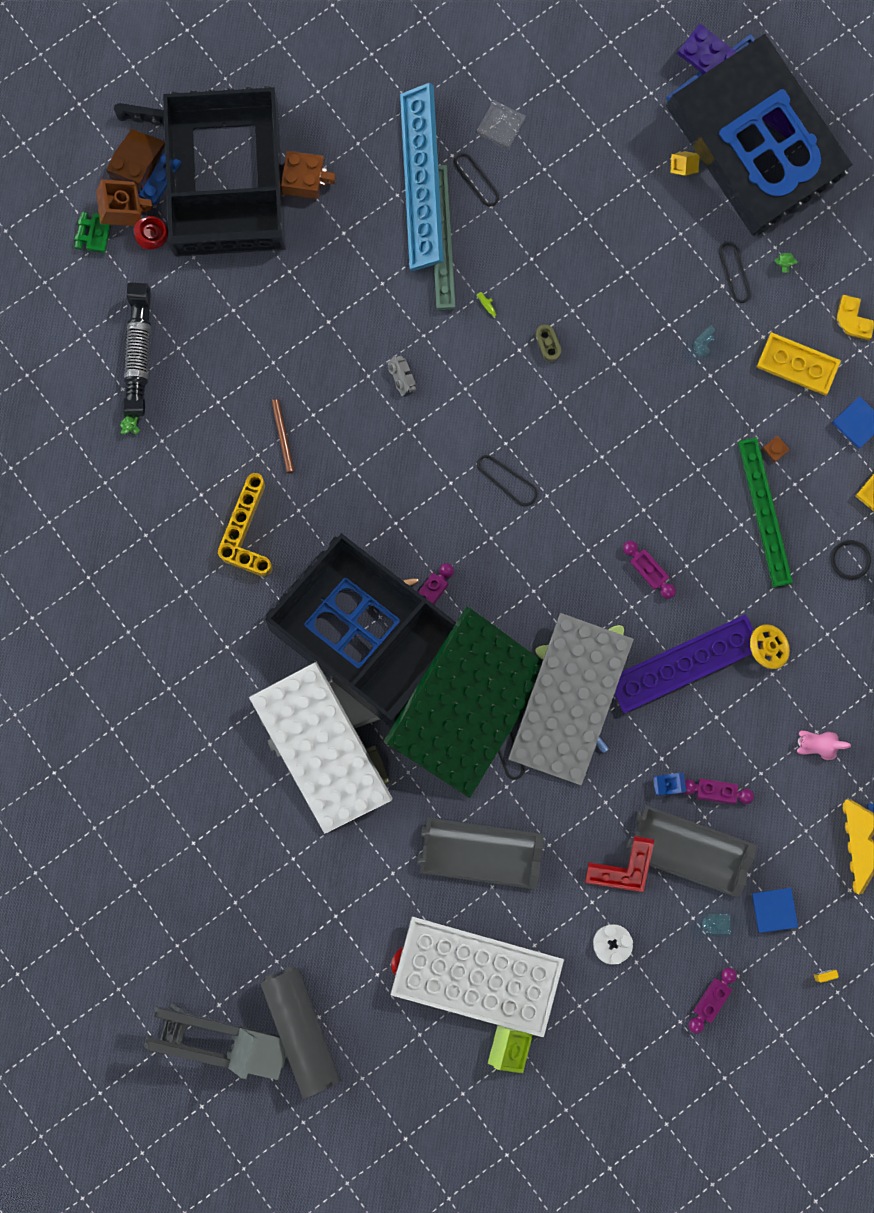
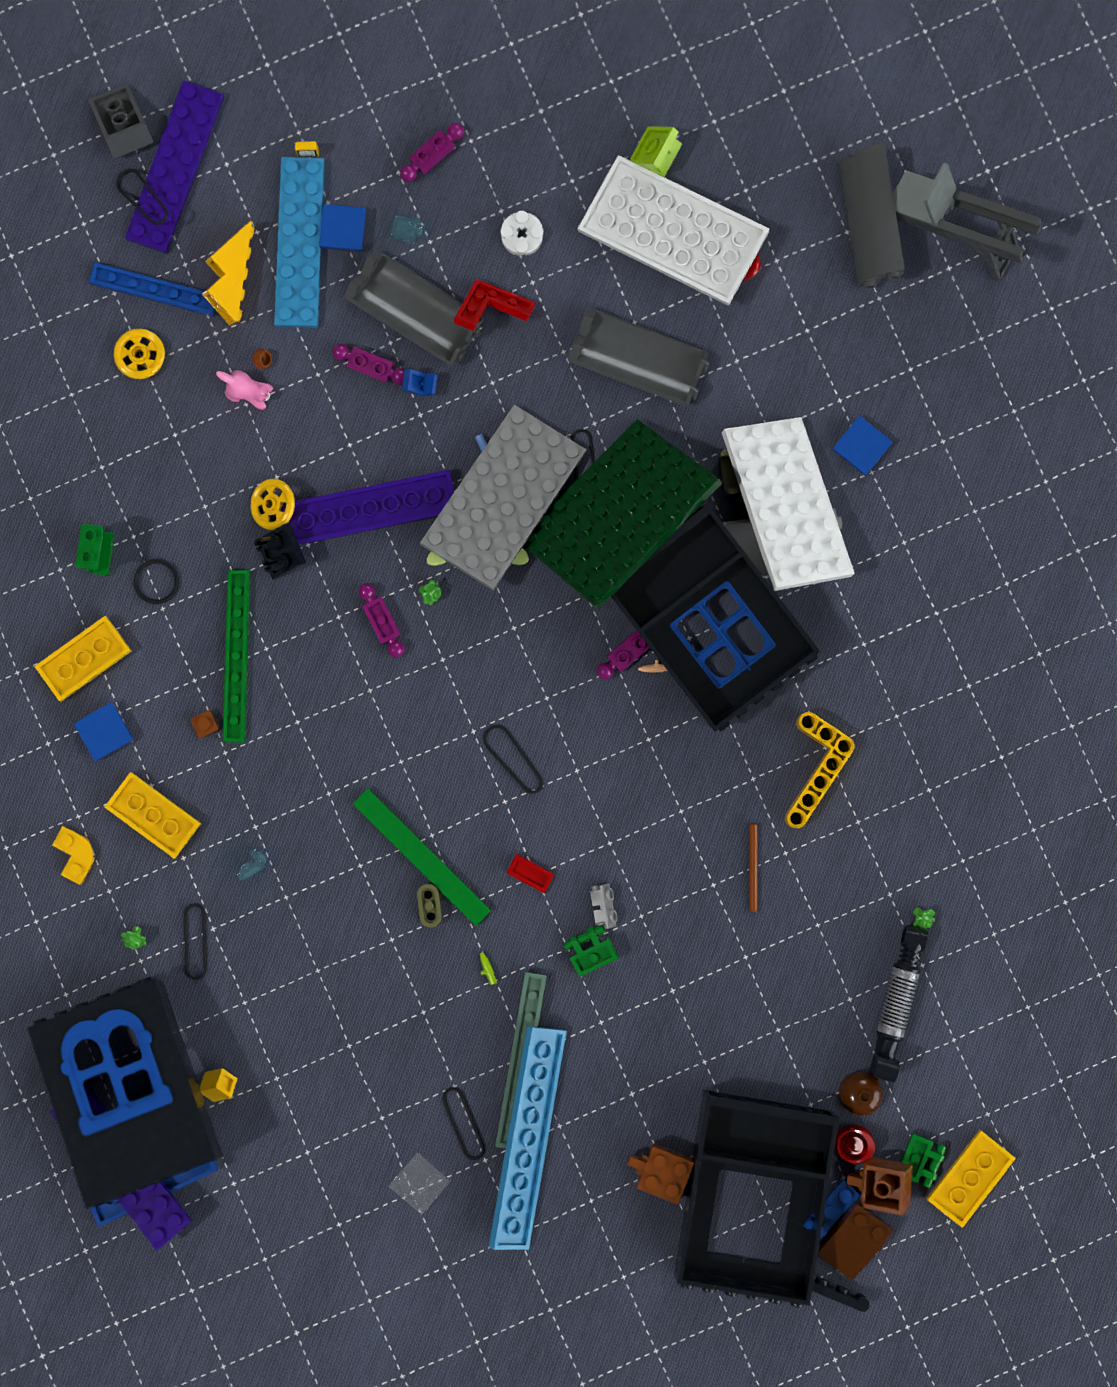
camera: 175 degrees left, 5 degrees up
(49, 227) = (970, 1178): none -> yellow plate
(155, 272) = (860, 1093): none -> reddish brown cylinder
(264, 820) = (862, 445): none -> blue tile
(400, 332) = (594, 956): none -> green plate
(470, 389) = (530, 873): none -> red tile
(564, 381) = (421, 857): none -> green tile
(613, 603) = (430, 592): none -> bright green plant
(752, 606) = (280, 551): none -> black plate
(810, 889) = (299, 242): none -> dark azure plate
(813, 774) = (262, 358): none -> dark orange plate

